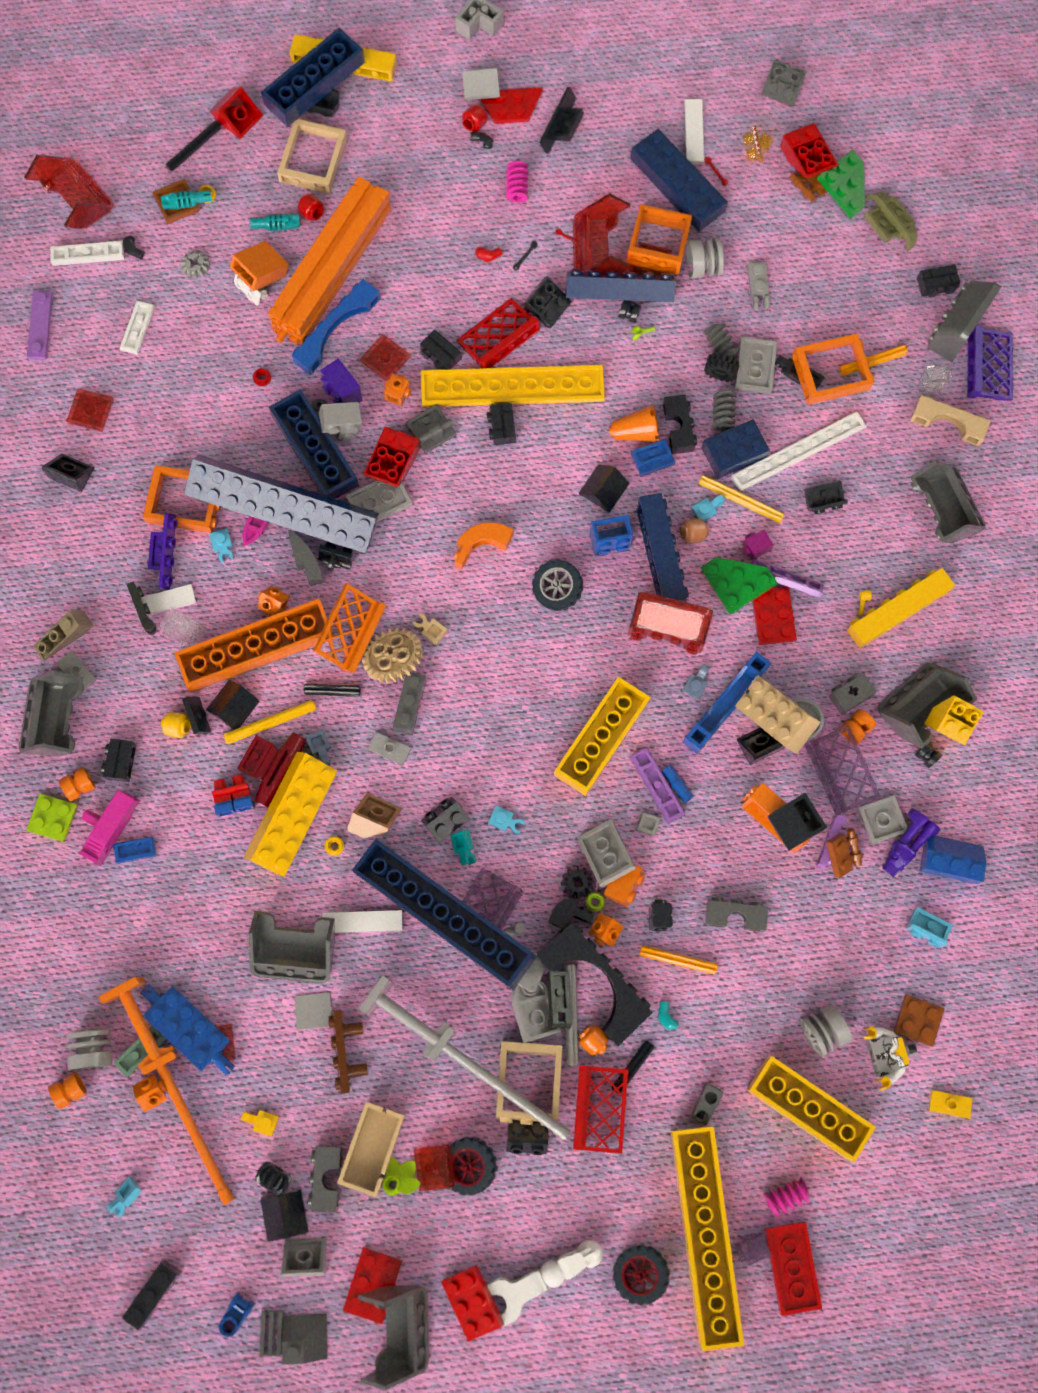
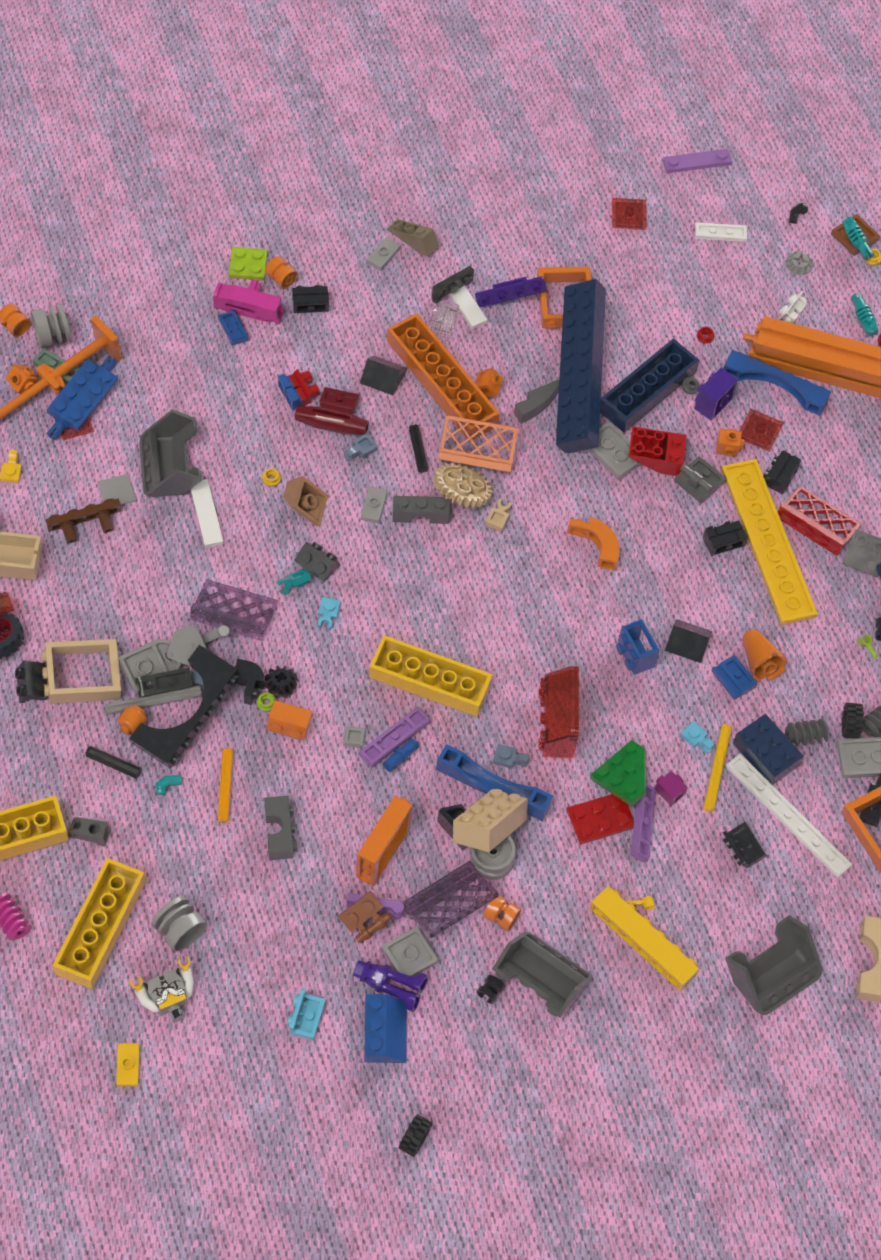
camera: 75 degrees right, 15 degrees down
(48, 714) = (338, 239): dark grey windscreen -> none
(68, 472) = (565, 208): black slope -> none
(74, 185) = (843, 157): clear red windscreen -> none
(87, 253) = (778, 180): white plate -> none
(175, 724) = (353, 333): yellow head -> none
(196, 715) = (365, 347): black plate -> none
(221, 542) = (533, 335): medium azure plate -> none
(253, 529) = (551, 355): dark pink plate -> none
(259, 265) = (813, 306): orange brick -> none
(269, 722) = (375, 406): yellow axle -> none
(290, 814) = (291, 432): yellow brick -> none
(334, 557) = (544, 424): black hips -> none
(341, 419) = (680, 395): light grey brick -> none
(439, 1041) = (135, 531): light grey piece -> none
(444, 914) = (223, 566): dark blue brick -> none
(567, 600) = (571, 623): black wheel -> none
(582, 1107) = (67, 723): red fence -> none
(605, 930) = (239, 711): orange brick -> none
(606, 853) = (314, 696): light grey plate -> none
(660, 547) = (633, 695): dark blue brick -> none
(660, 916) = (262, 754): black brick -> none
(678, 409) = (764, 701): black arch -> none
(694, 530) = (667, 726): nougat head -> none
(797, 821) = (378, 836): black slope -> none
(844, 701) = (541, 912): dark grey brick -> none
(919, 1020) = (208, 1021): dark orange plate -> none
(954, 719) = (531, 999): yellow slope -> none

